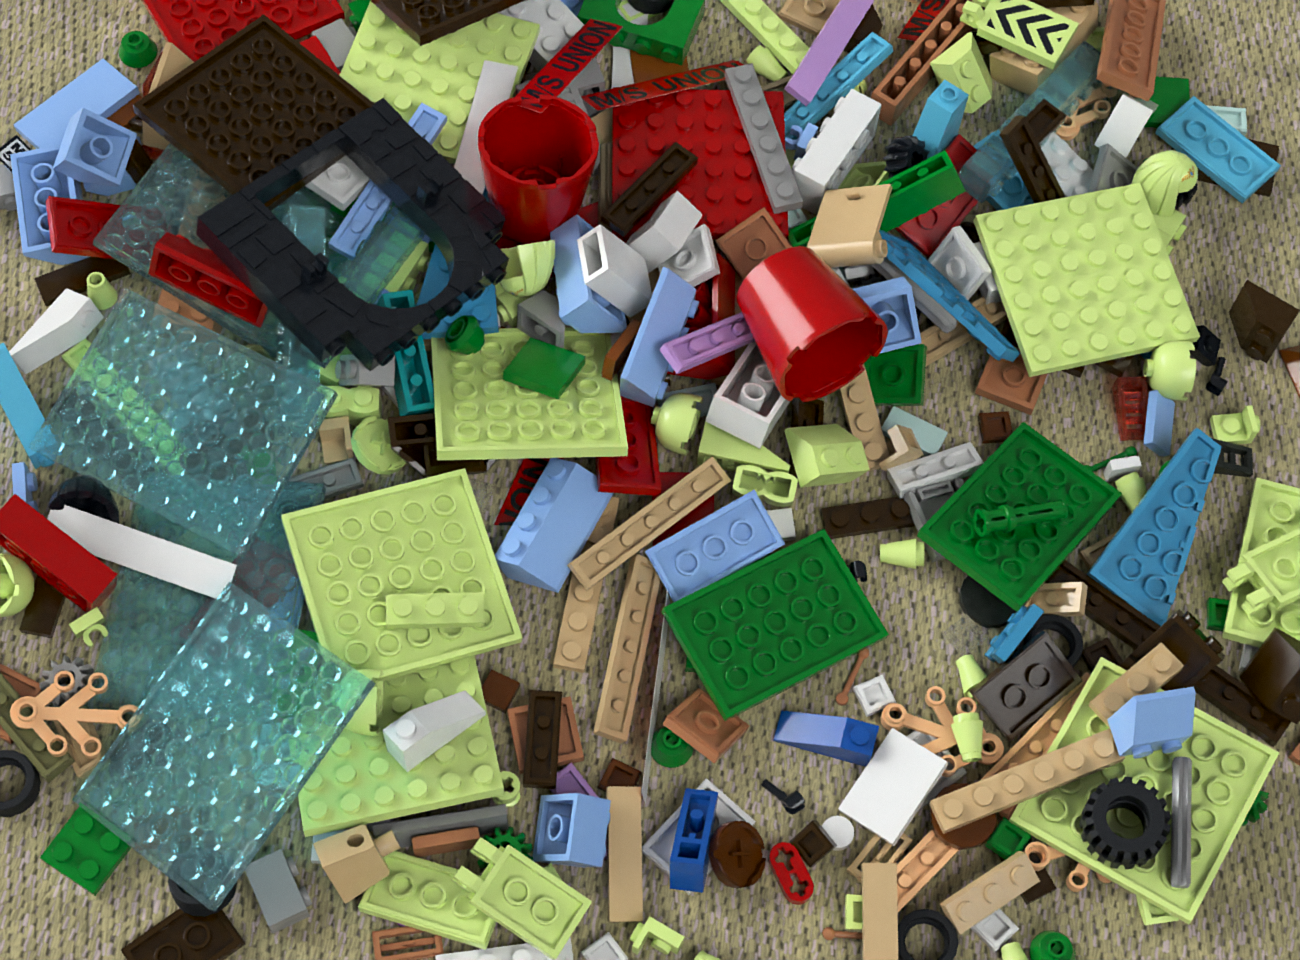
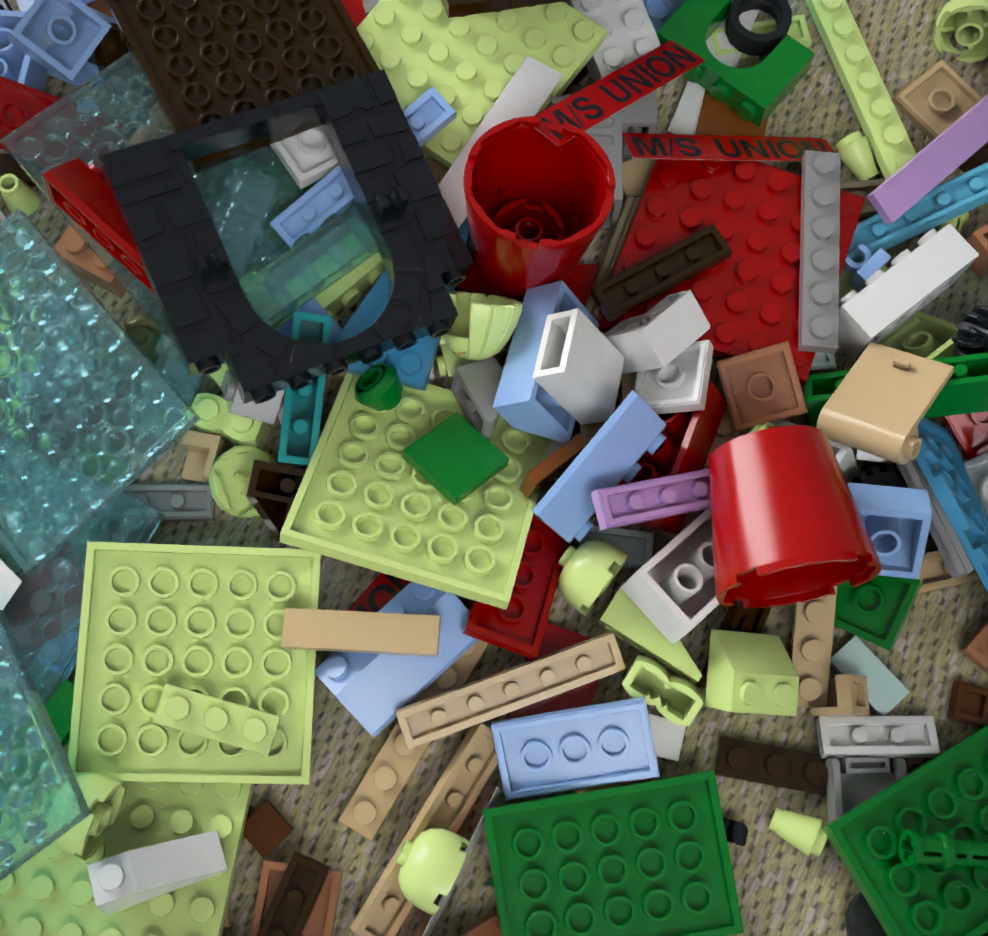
camera: 25 degrees right, 10 degrees up
(521, 511) = (361, 632): none -> tan tile
(639, 659) = (430, 866): none -> yellowish green cylinder

